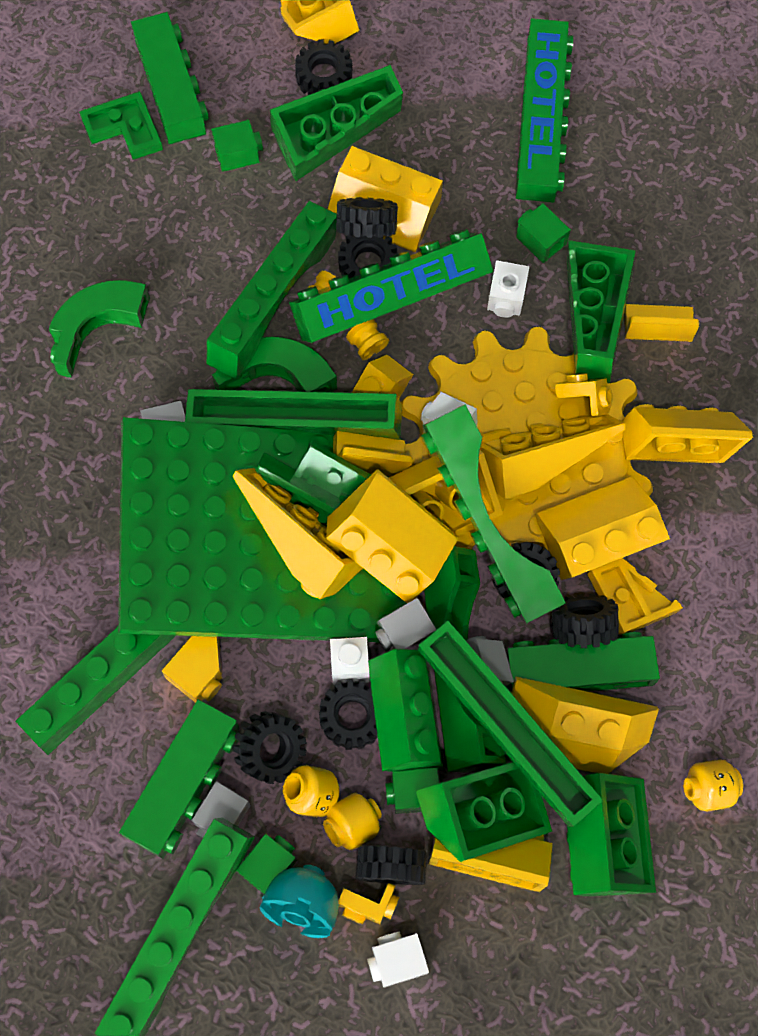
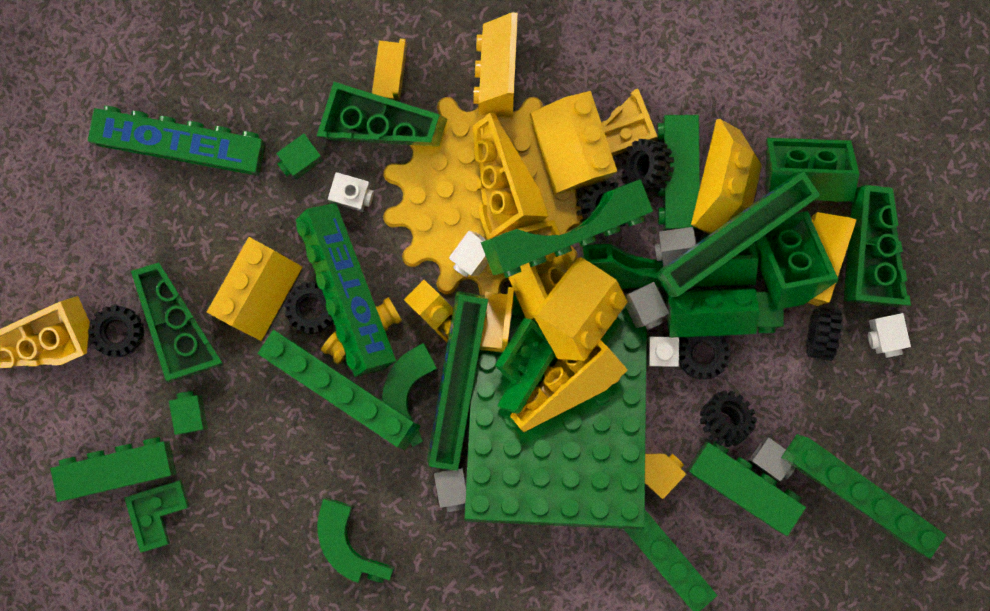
camera: 80 degrees left, 15 degrees up
(267, 861) = (813, 424): green brick -> none
(302, 899) = (842, 401): teal cylinder -> none
(311, 791) = (762, 389): yellow head -> none
(352, 821) = (786, 360): yellow head -> none
(358, 908) = (850, 358): yellow bracket -> none
(366, 217) = (280, 305): black tyre -> none
(509, 930) = (874, 251): none -> green wedge
(580, 385) = (453, 139): yellow bracket -> none
(713, 785) = (779, 86): yellow head -> none

